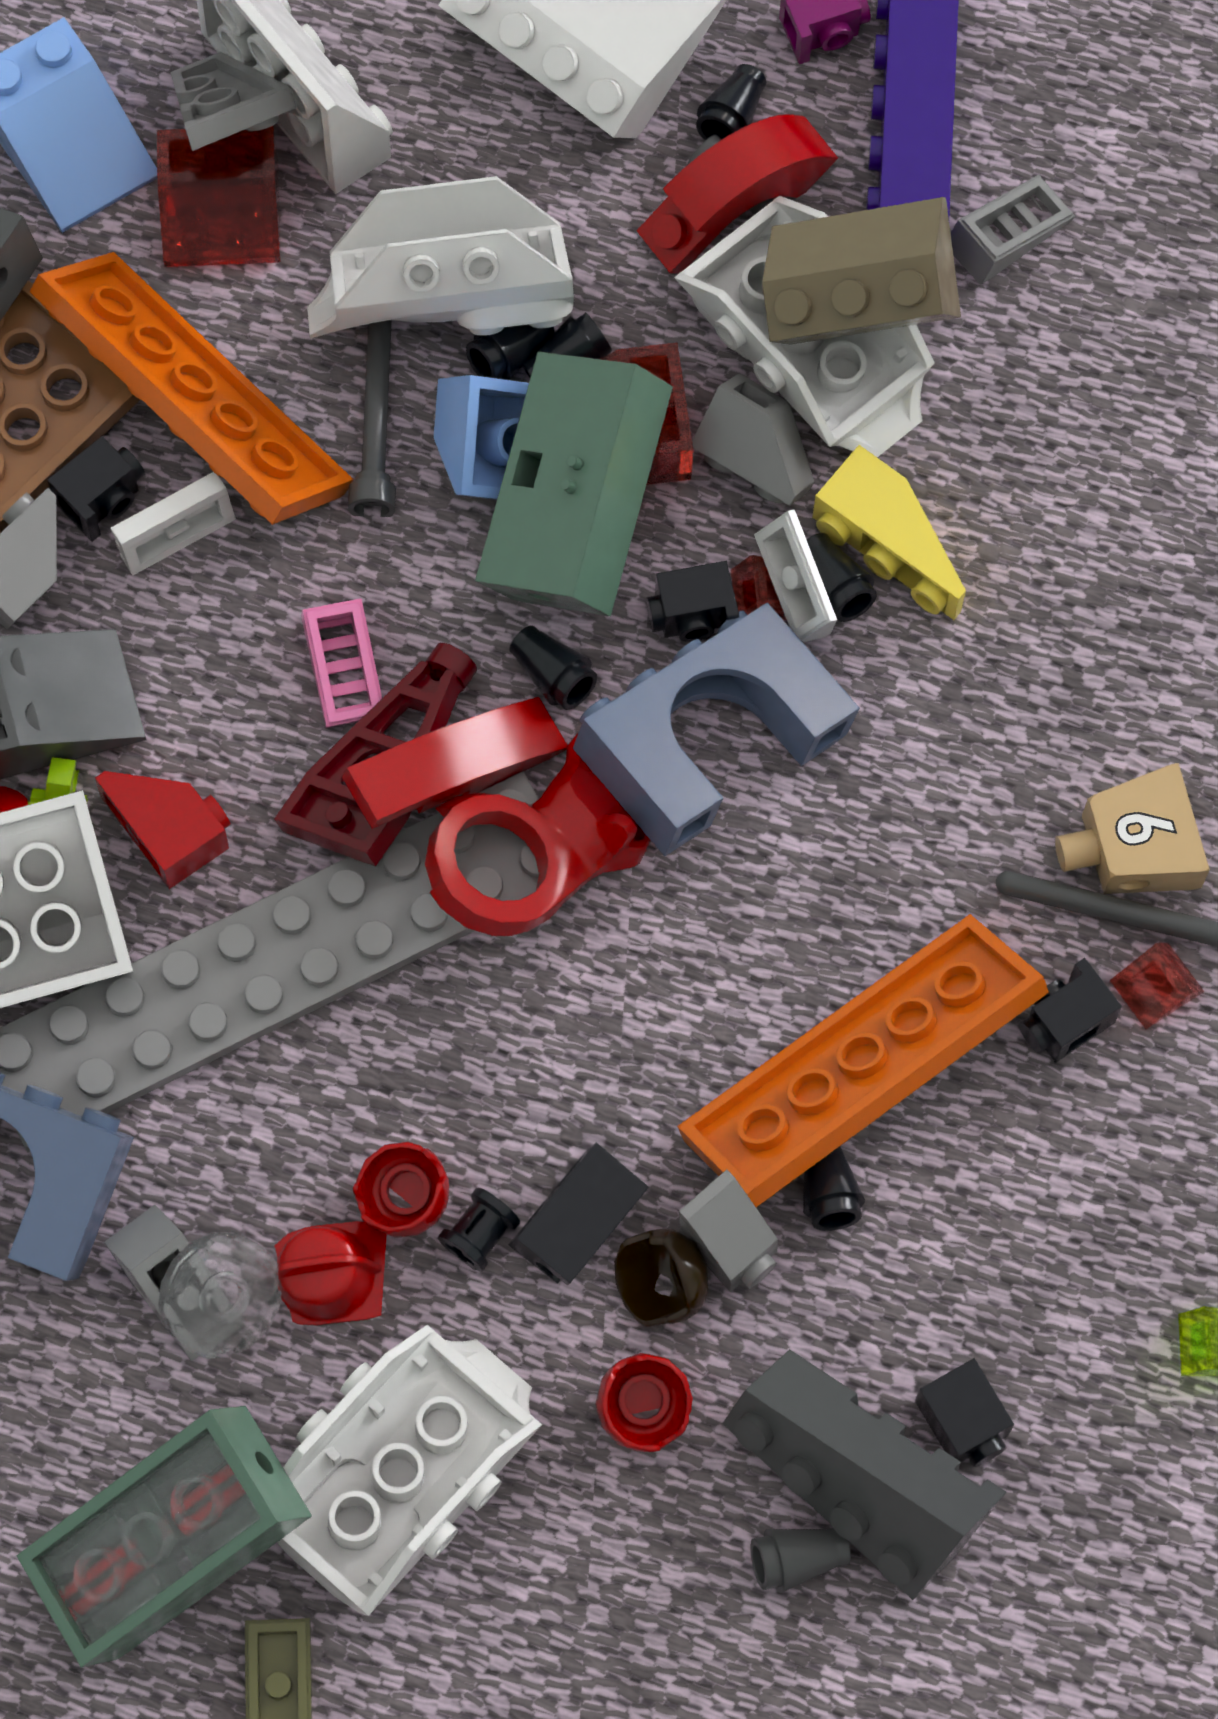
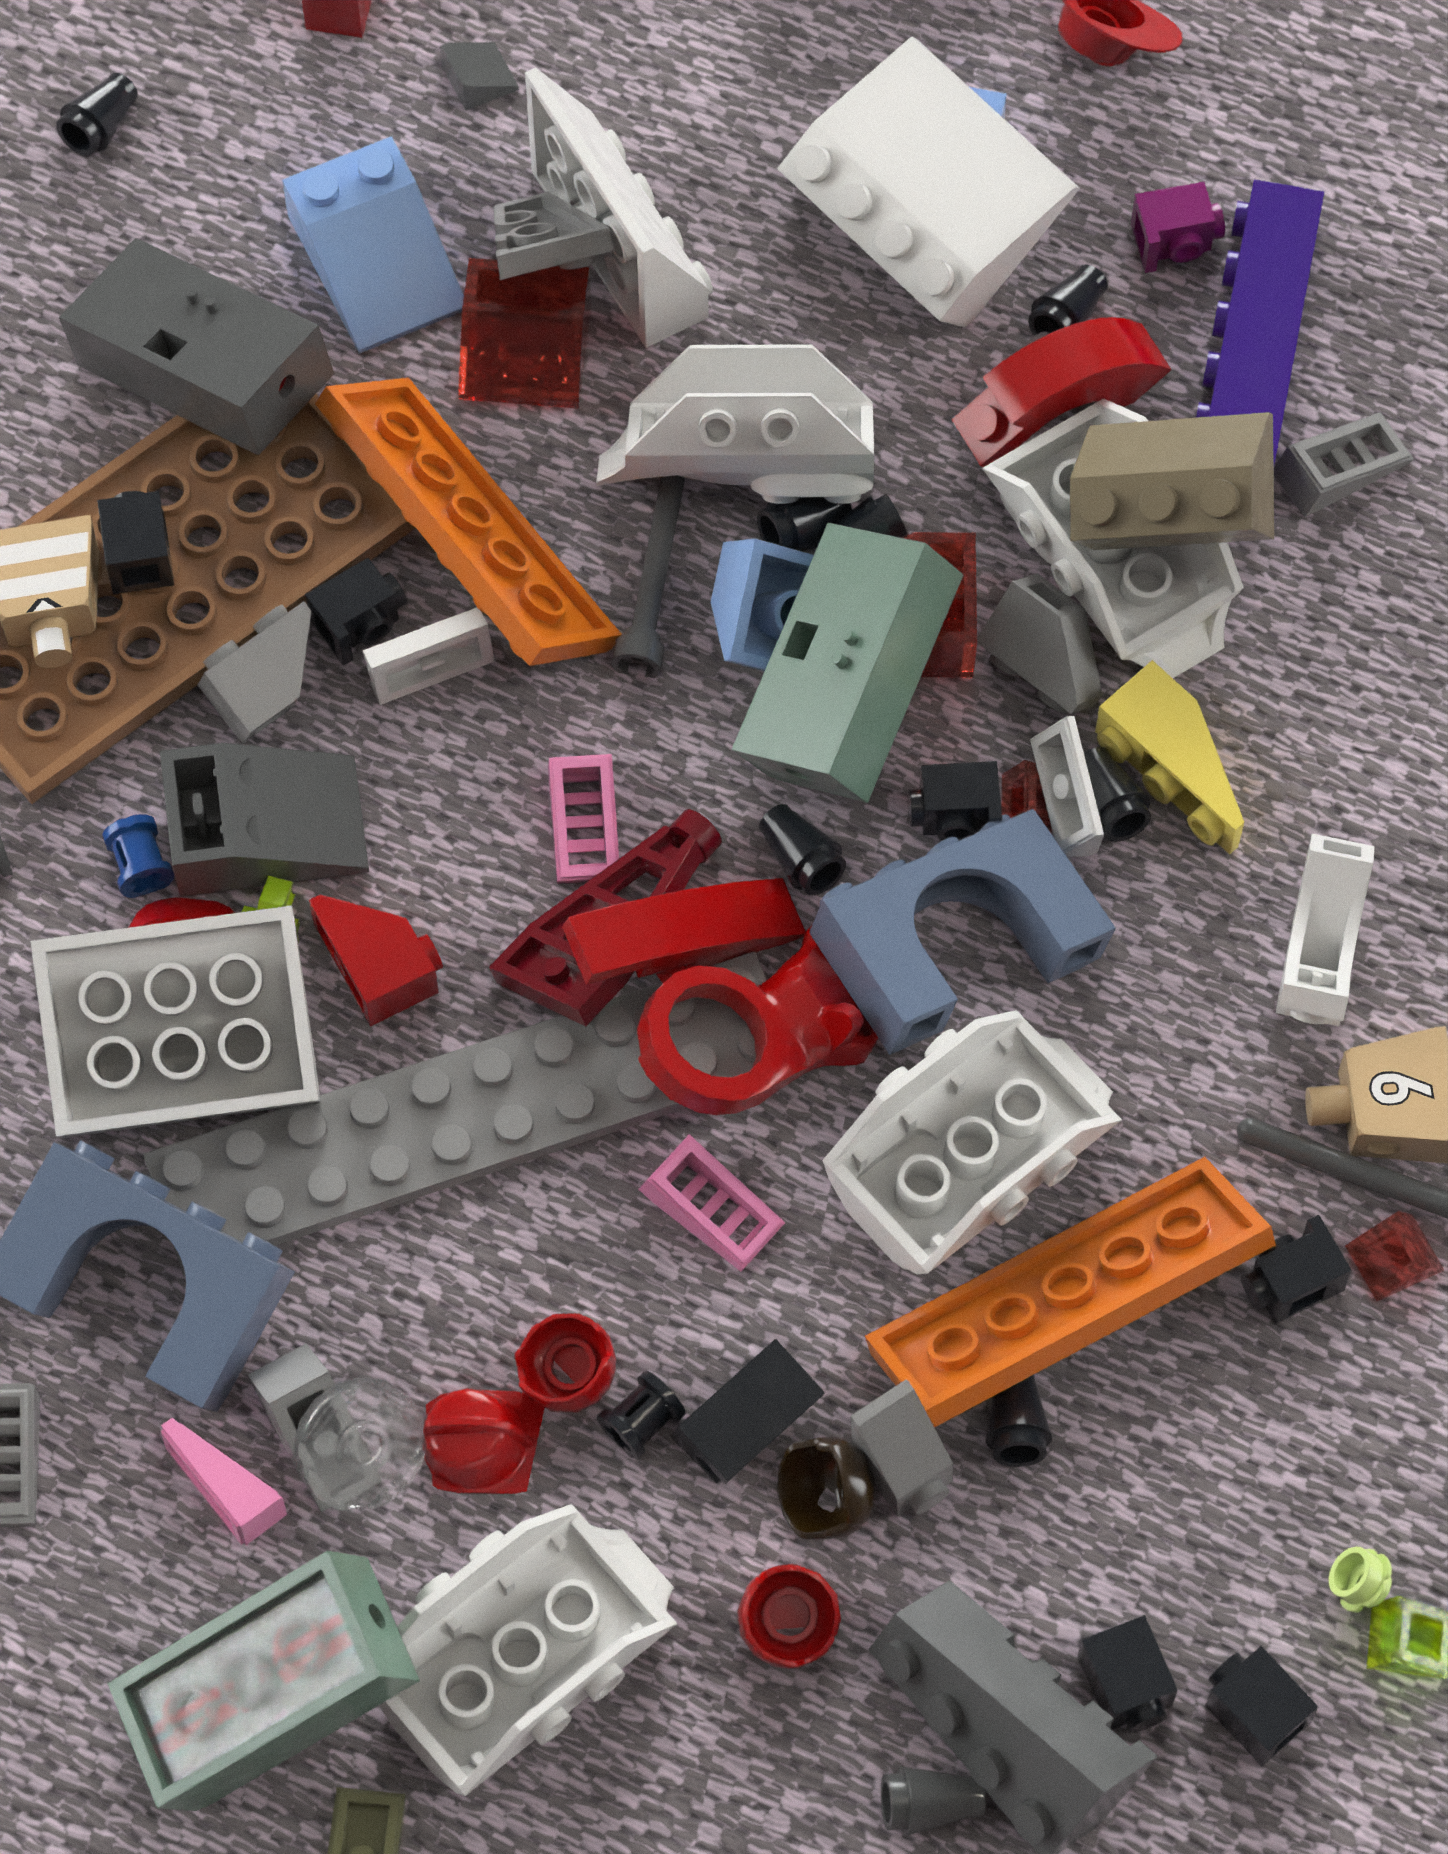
camera: 10 degrees right, 5 degrees down
(105, 1354) = (233, 1492): none -> bright pink slope
(505, 1037) = (678, 1205): none -> bright pink slope
(749, 928) = (966, 1138): none -> white slope
(1053, 685) = (1325, 931): none -> white arch
(1089, 1424) = (1259, 1703): none -> black brick
(1166, 1294) = (1360, 1578): none -> yellowish green plate

